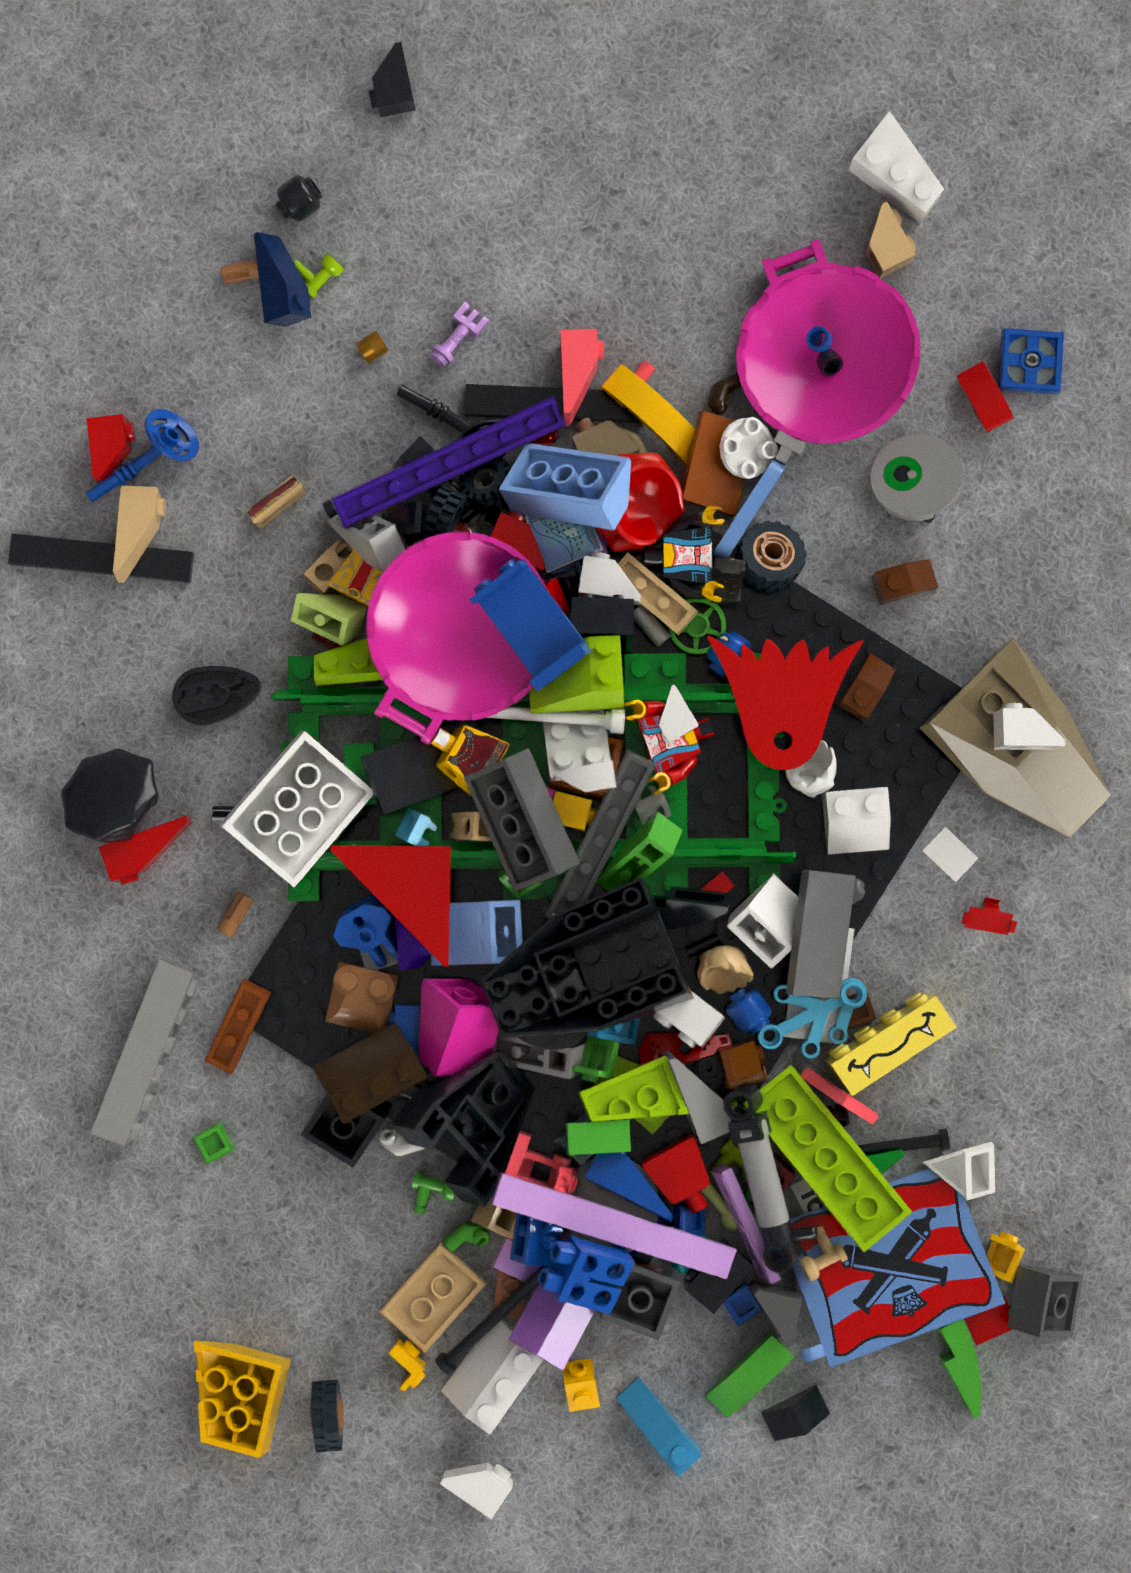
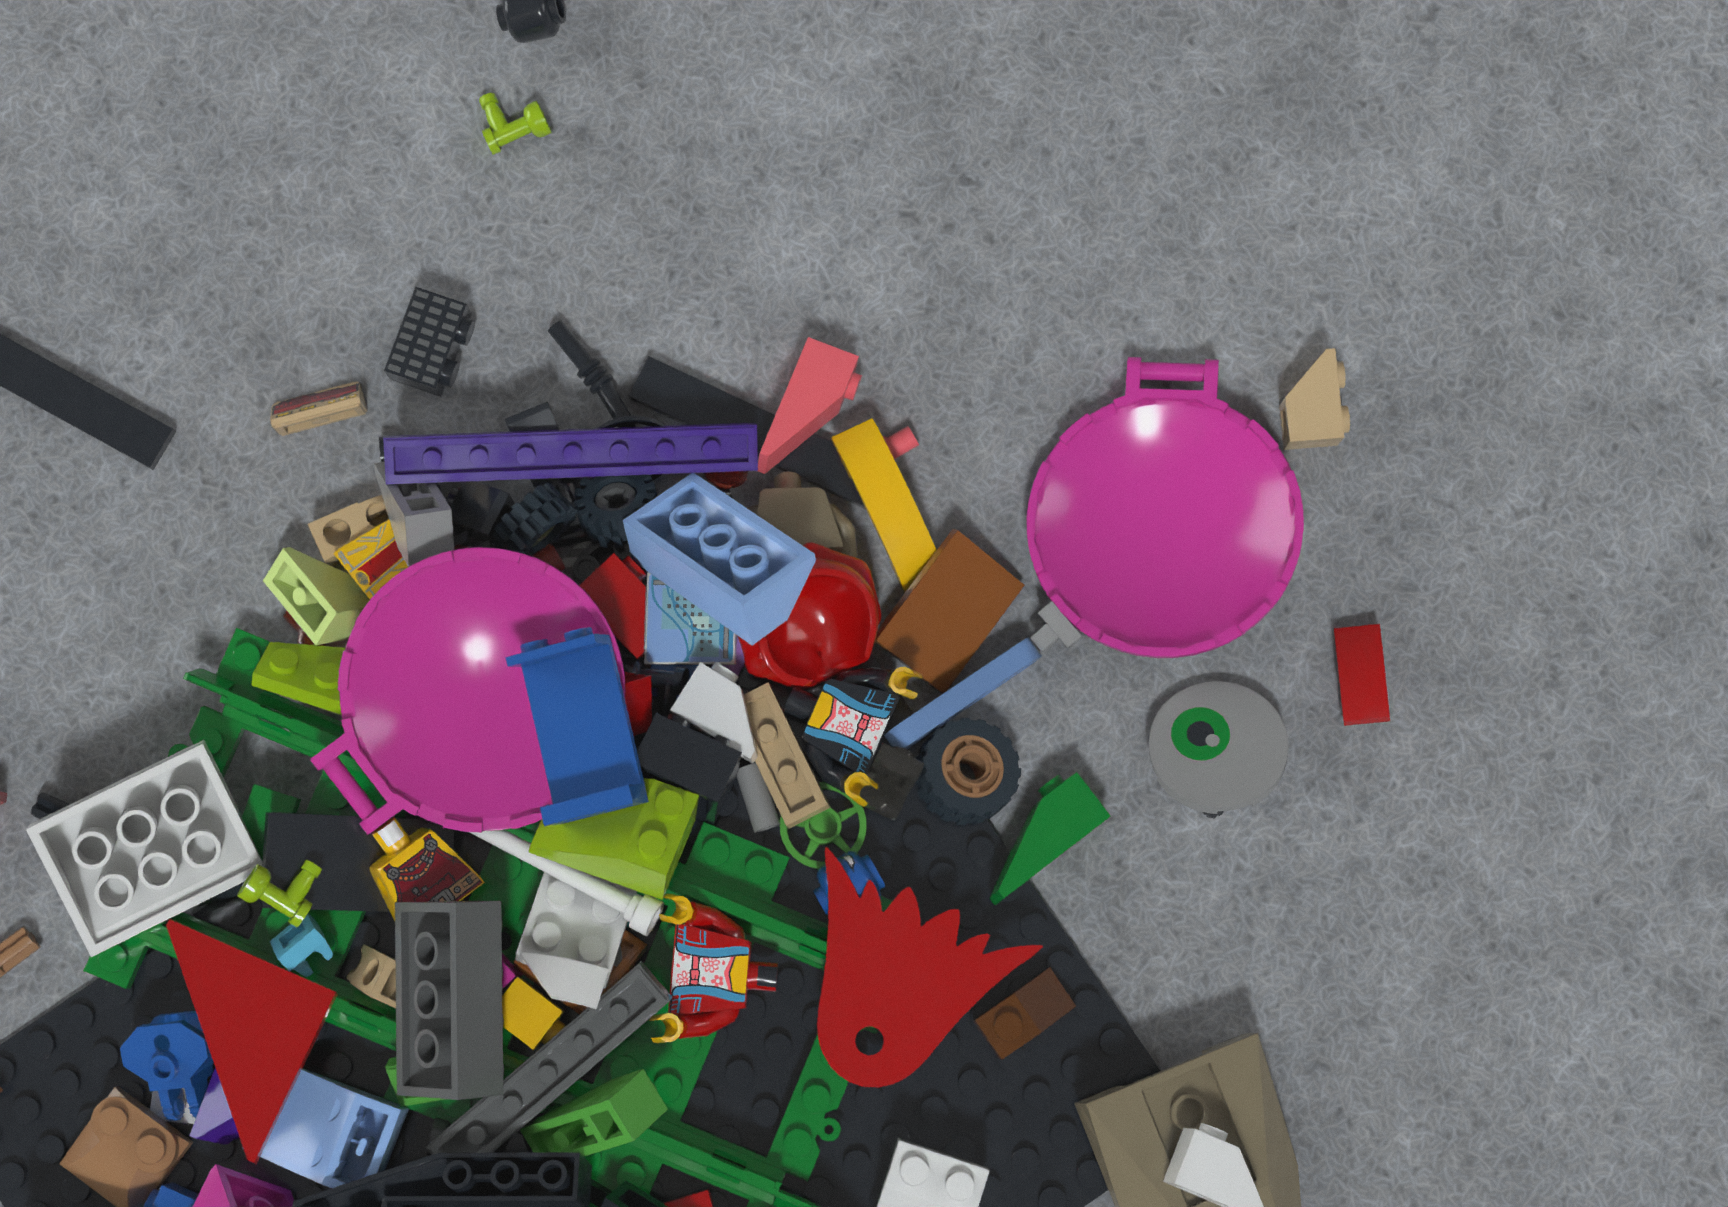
camera: 20 degrees right, 5 degrees down
(109, 443) = (124, 235): red slope -> none
(136, 526) = (109, 362): tan slope -> none
(162, 444) = (196, 270): blue dish -> none
(207, 677) = (103, 660): black piece -> none
(240, 271) = (414, 77): medium nougat piece -> none
(281, 286) = (455, 114): dark blue slope -> none
(327, 431) = (430, 342): none -> black brick
(372, 347) = (542, 252): pearl gold hose -> none
(399, 804) = (291, 902): none -> lime piece
(442, 354) = (634, 302): lavender hinge -> none
(651, 805) = (645, 1055): light grey tile -> none
(676, 716) = (731, 944): white sticker -> none
(720, 391) = (994, 514): dark brown arm -> none
(747, 448) = (997, 607): white dish -> none
(815, 338) = (1157, 496): blue hinge -> none
(816, 774) = (897, 1108): white hair -> none
(833, 358) = (1163, 546): black hinge -> none
(835, 570) = (1051, 828): none -> green slope
(897, 170) = (1368, 311): white wedge -> none
(904, 581) = (1142, 885): reddish brown slope -> none
(1030, 361) = (1447, 652): blue piece -> none

